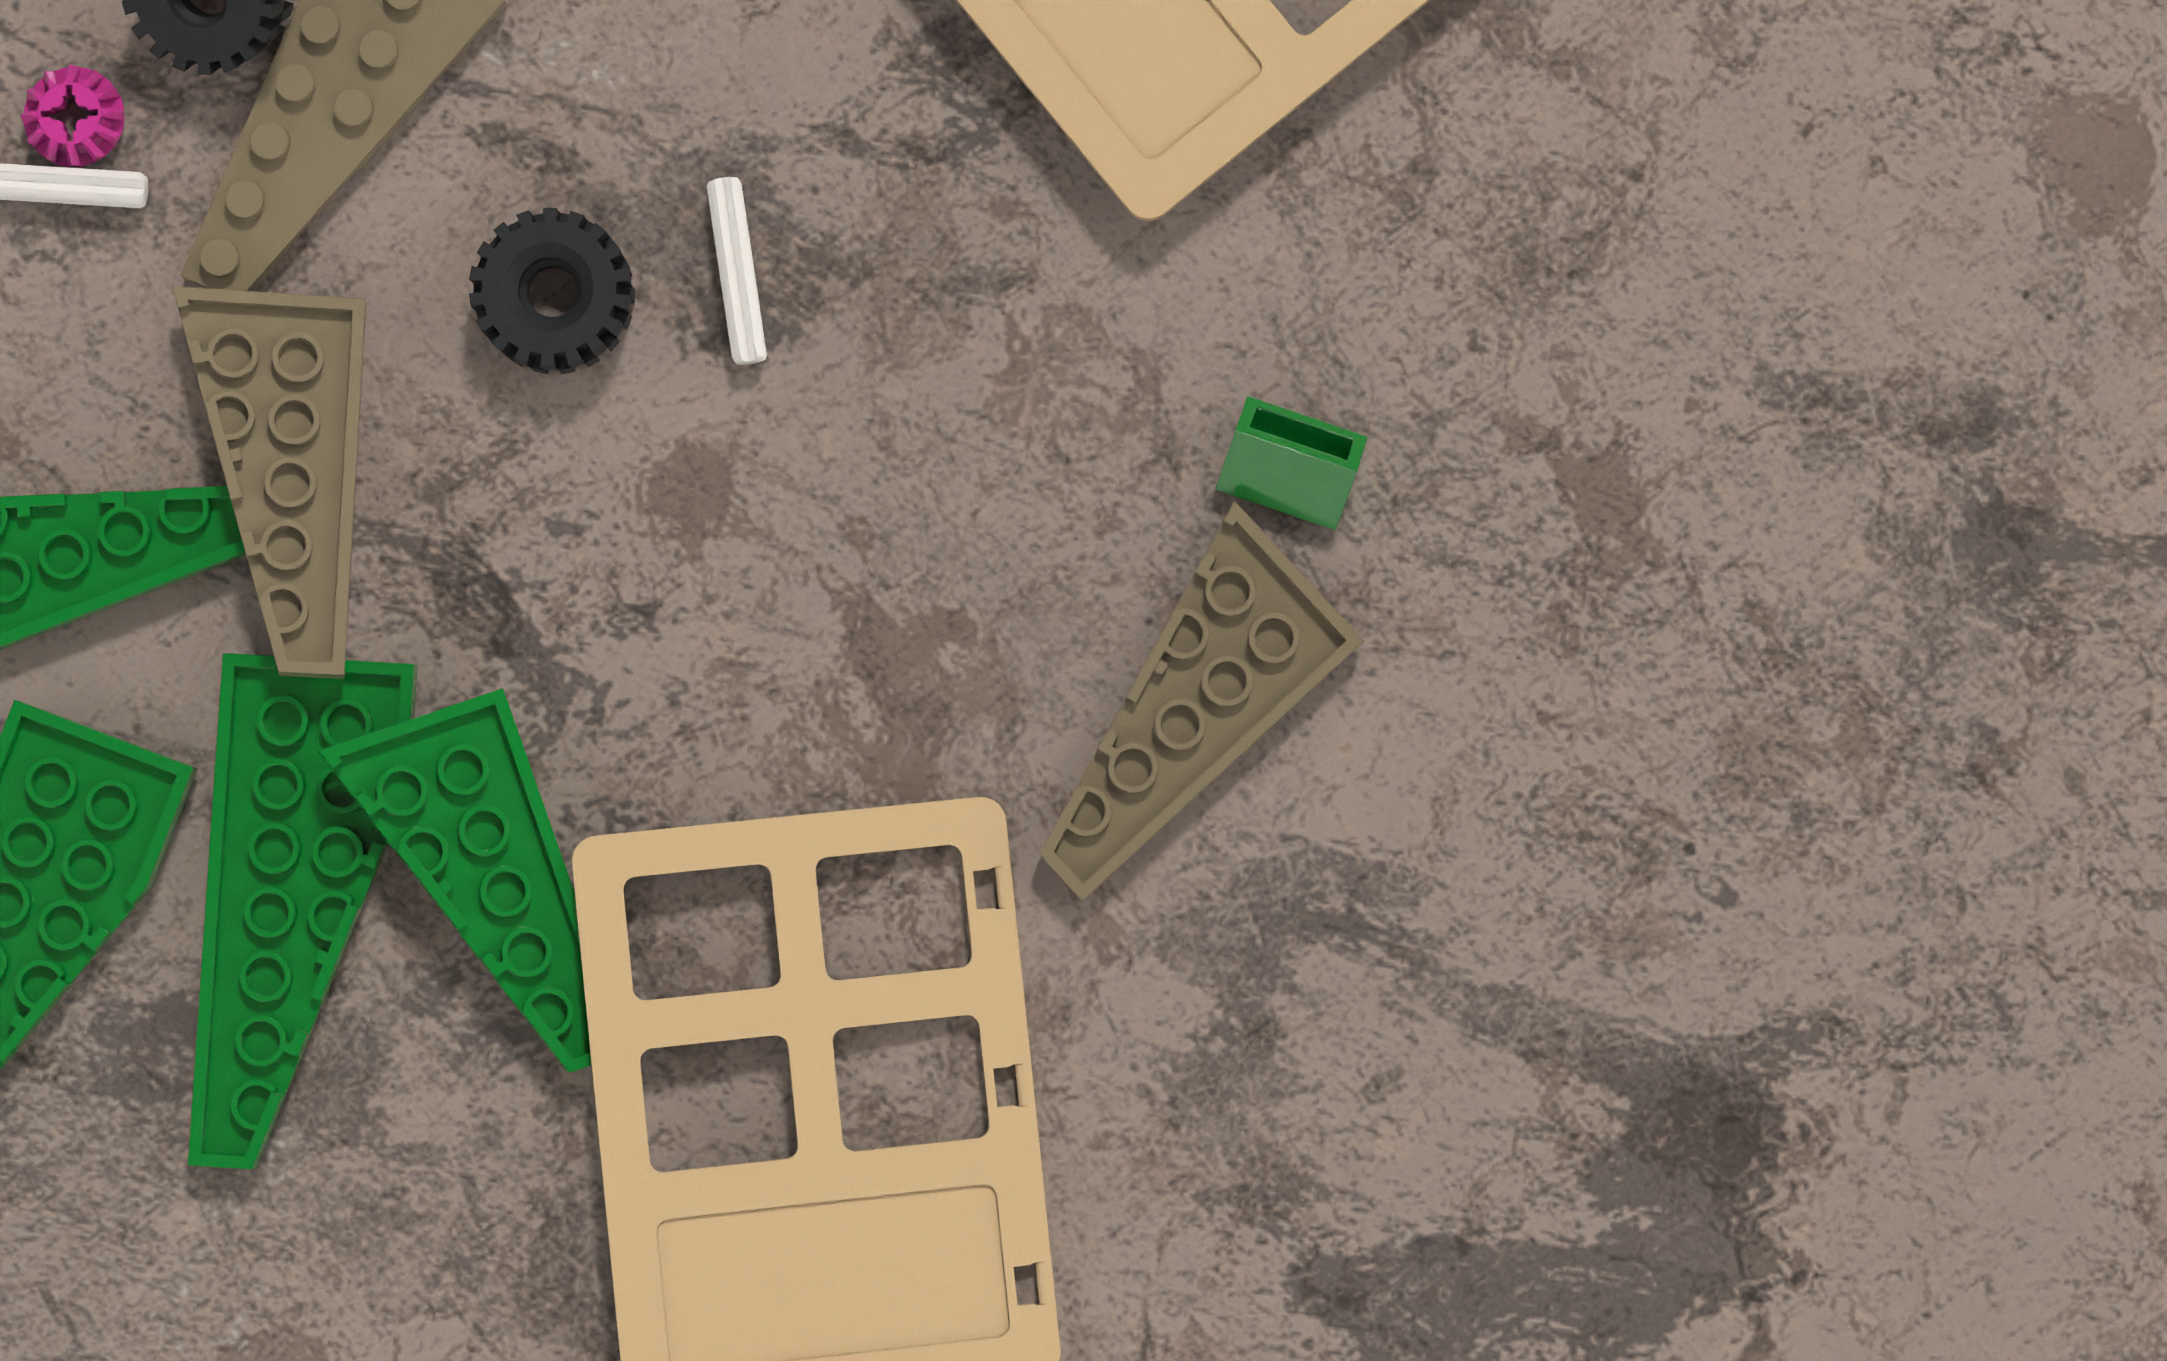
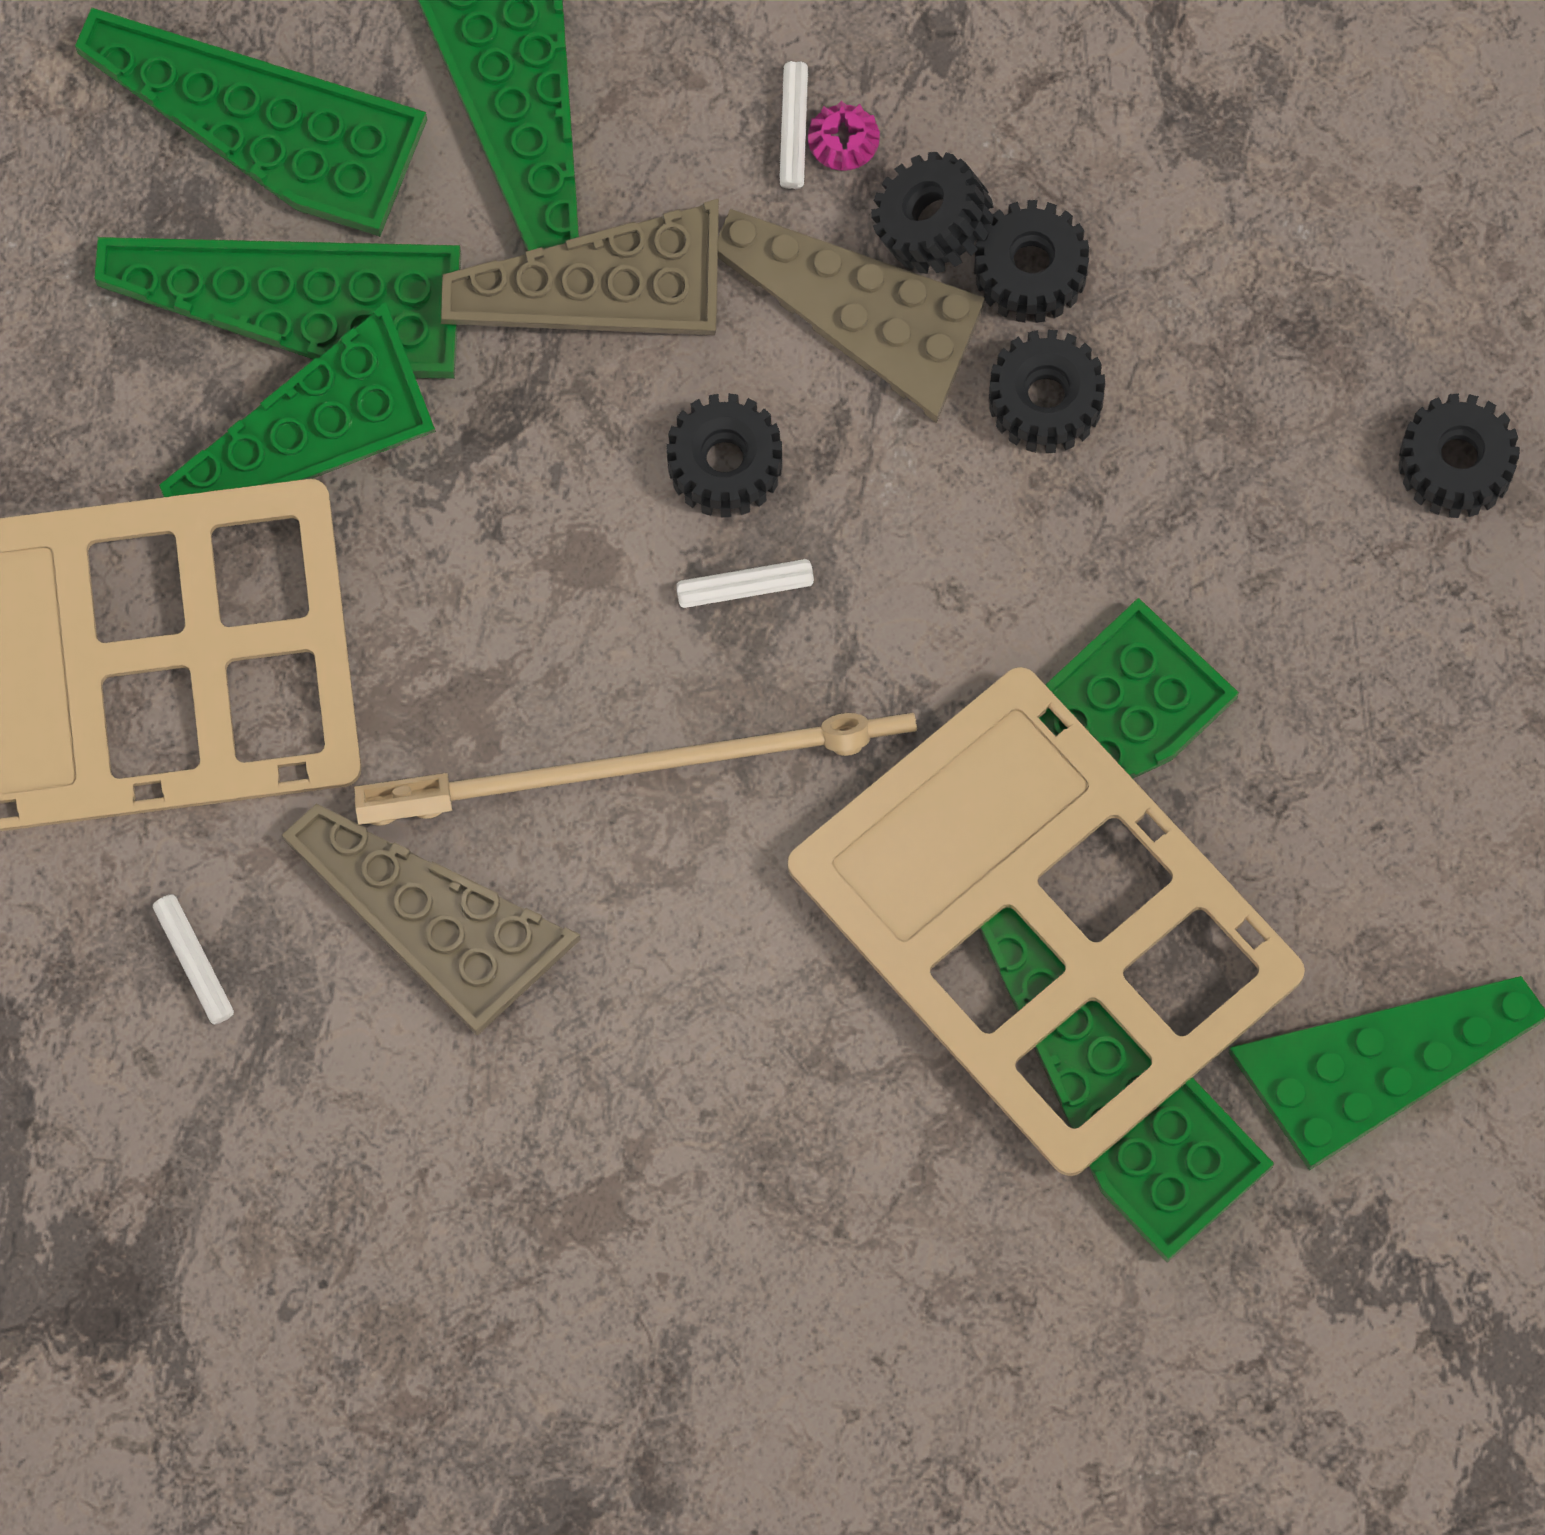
camera: 90 degrees right, 15 degrees down
(1030, 698) = (433, 794): none -> tan bar
(1246, 1022) = (193, 959): none -> white axle
(1291, 463) = (610, 977): green brick -> none

